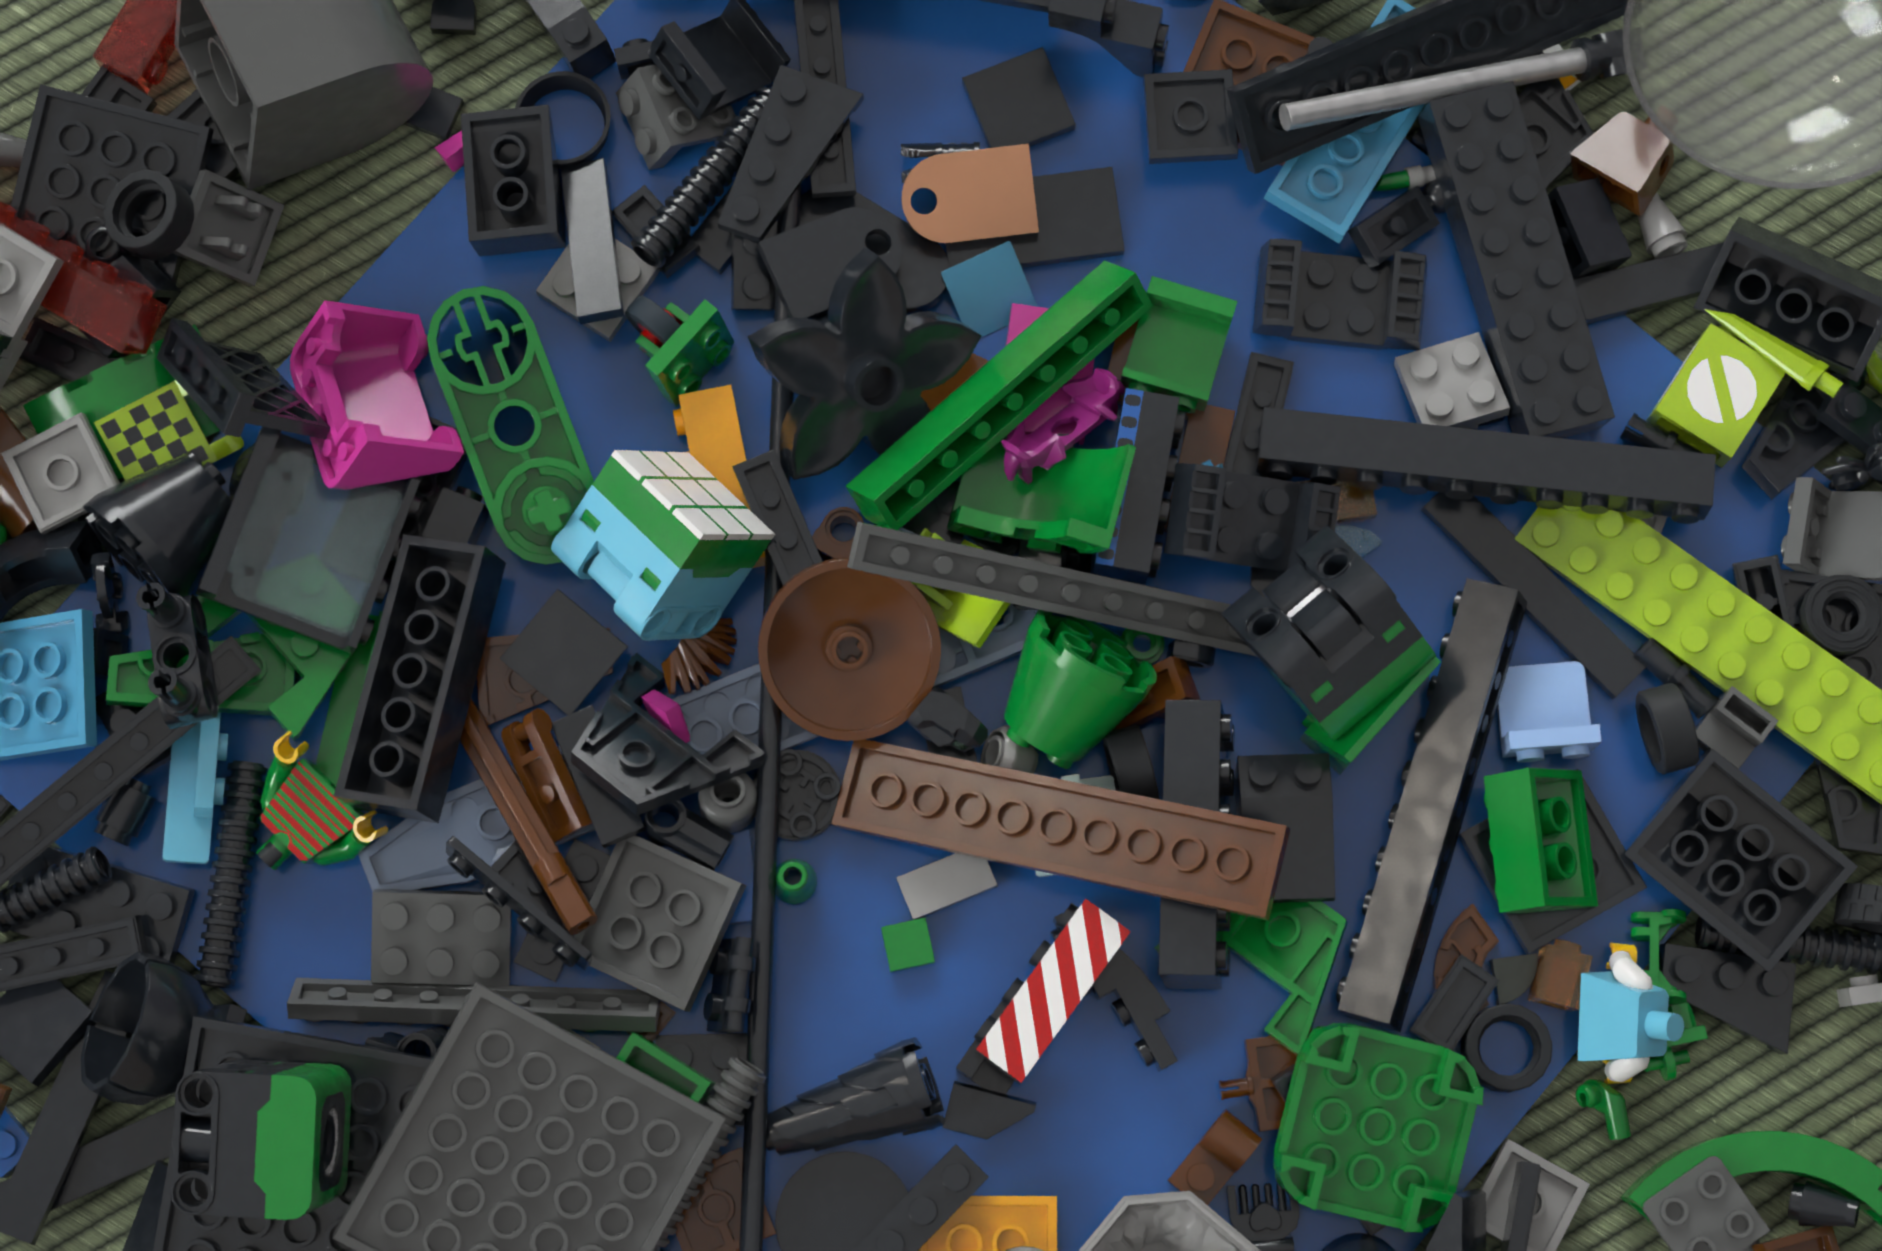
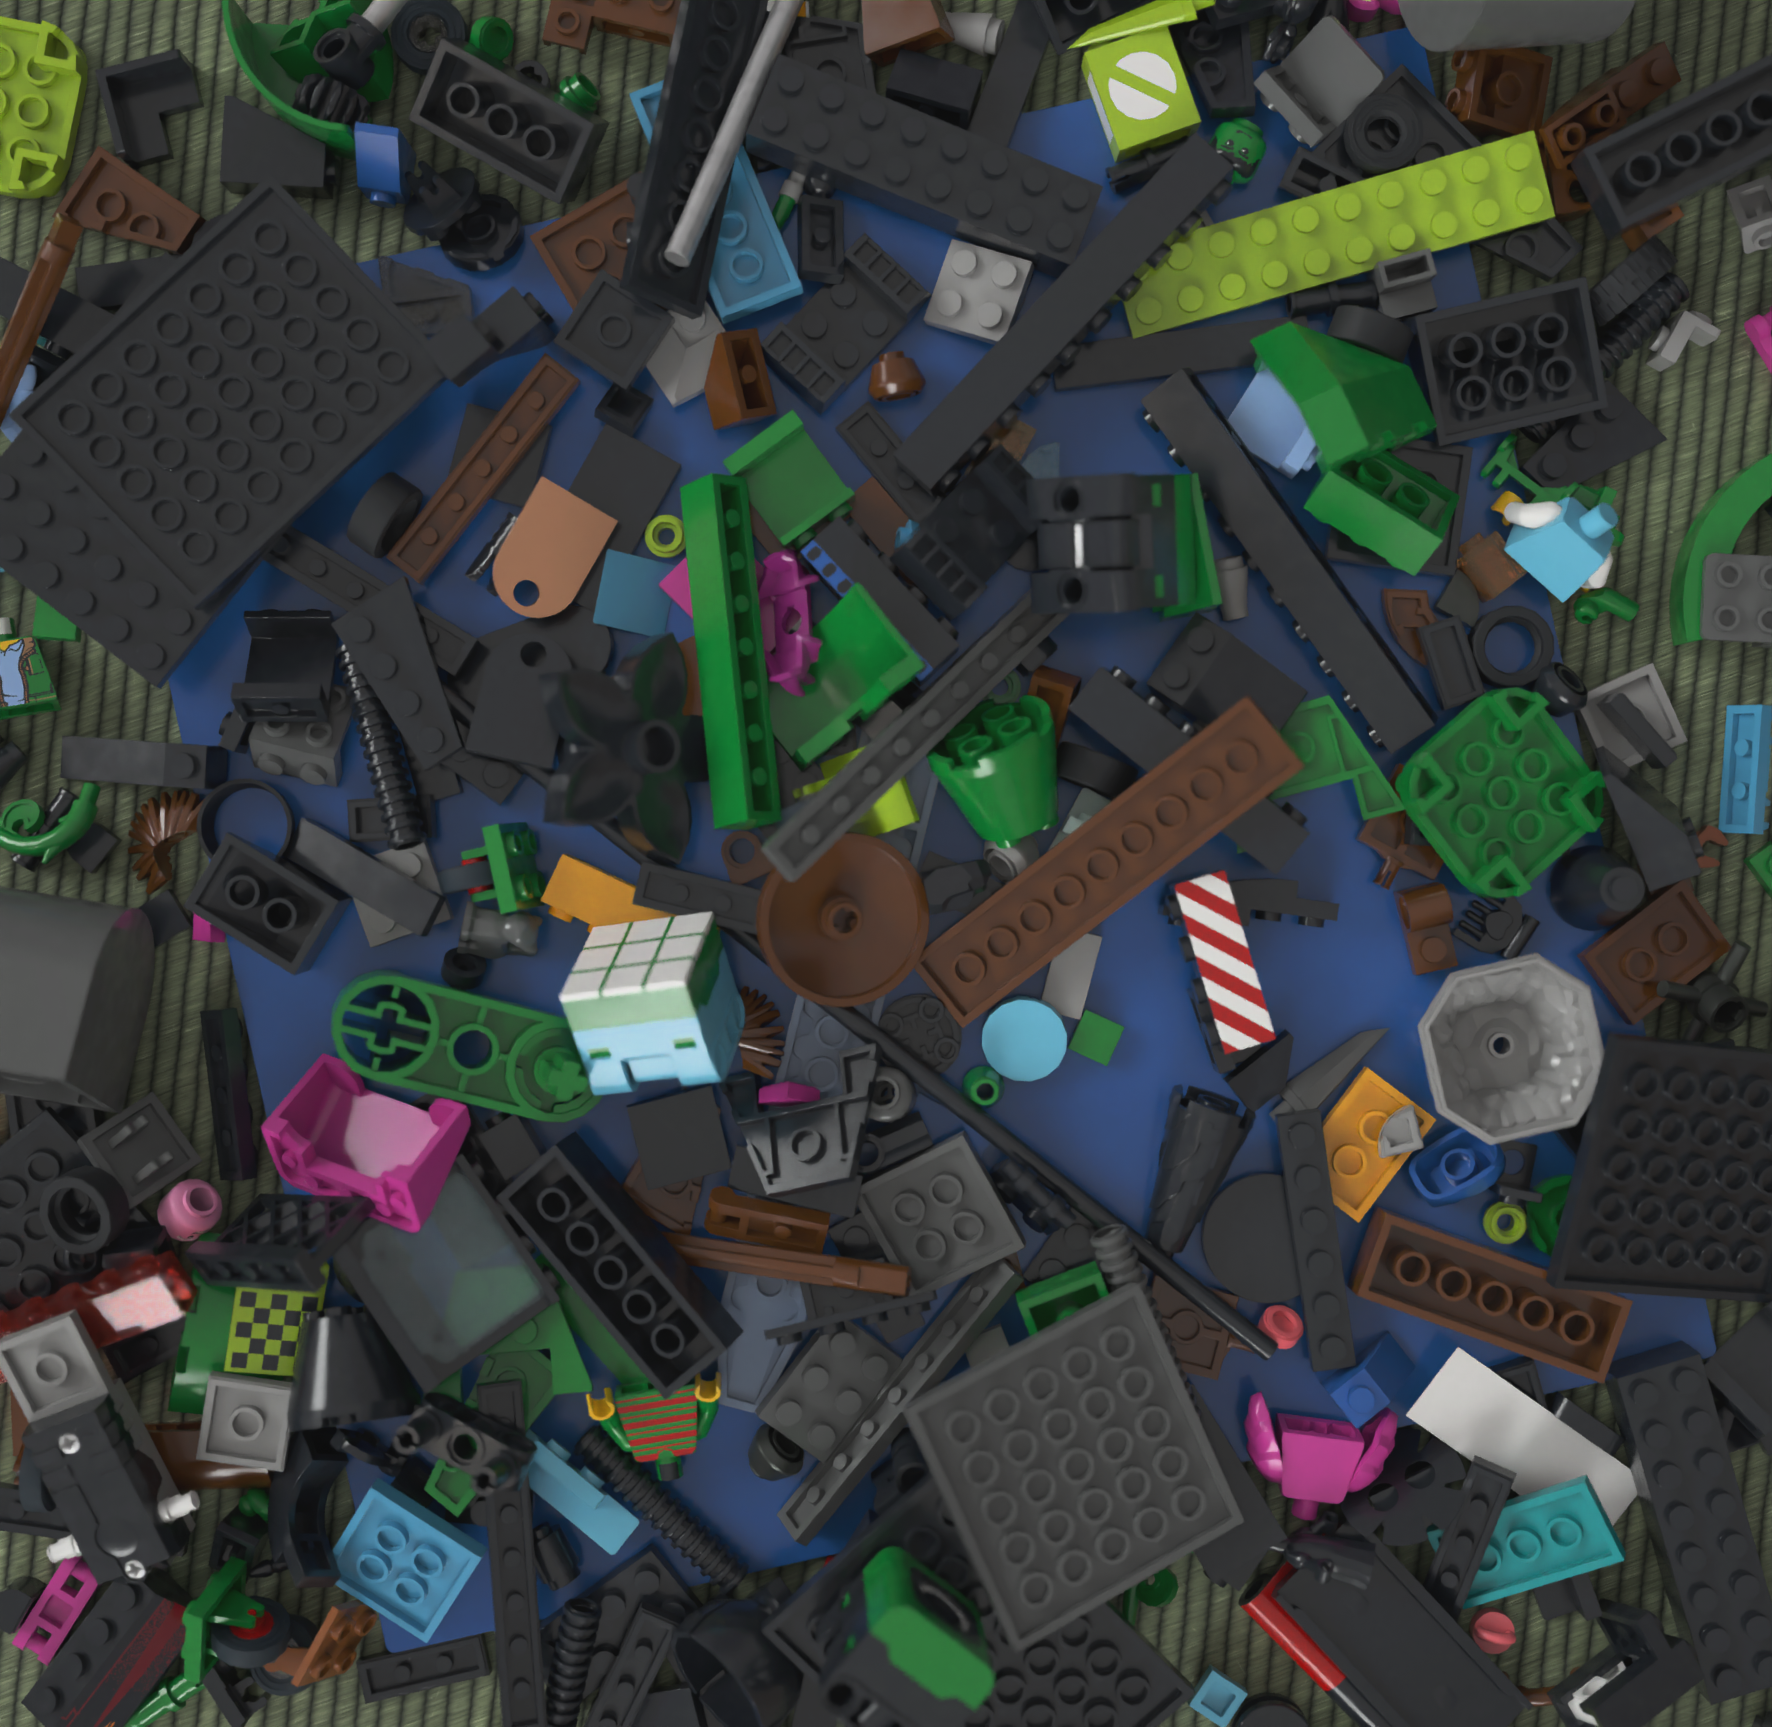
camera: 55 degrees left, 10 degrees up
(207, 303) = (190, 1209): none -> bright pink head
(318, 274) = (228, 1094): none -> black plate
(348, 934) = (774, 1455): none -> pearl dark grey cone
(505, 58) = (160, 829): none -> reddish brown hair
(574, 376) = (463, 970): none -> black tile
(624, 382) = (497, 934): none -> dark grey animal
(861, 883) = (1024, 1038): none -> medium azure tile
(901, 45) = (384, 514): none -> black tyre
(998, 97) = (483, 469): none -> reddish brown tile
(1018, 1167) = (1318, 1081): none -> dark grey bar
(1055, 269) = (662, 523): none -> lime plate
(1133, 172) = (623, 409): none -> black tile
(1220, 196) = (685, 356): none -> light grey plate
(1227, 243) = (738, 381): none -> reddish brown slope
(1329, 369) = (895, 378): none -> reddish brown cone
(1373, 771) = (1233, 586): none -> light grey cone
(1503, 1116) = (1561, 689): none -> black cone
(1600, 738) = (1346, 394): none -> green panel
(1735, 508) = (1241, 146): none -> green head

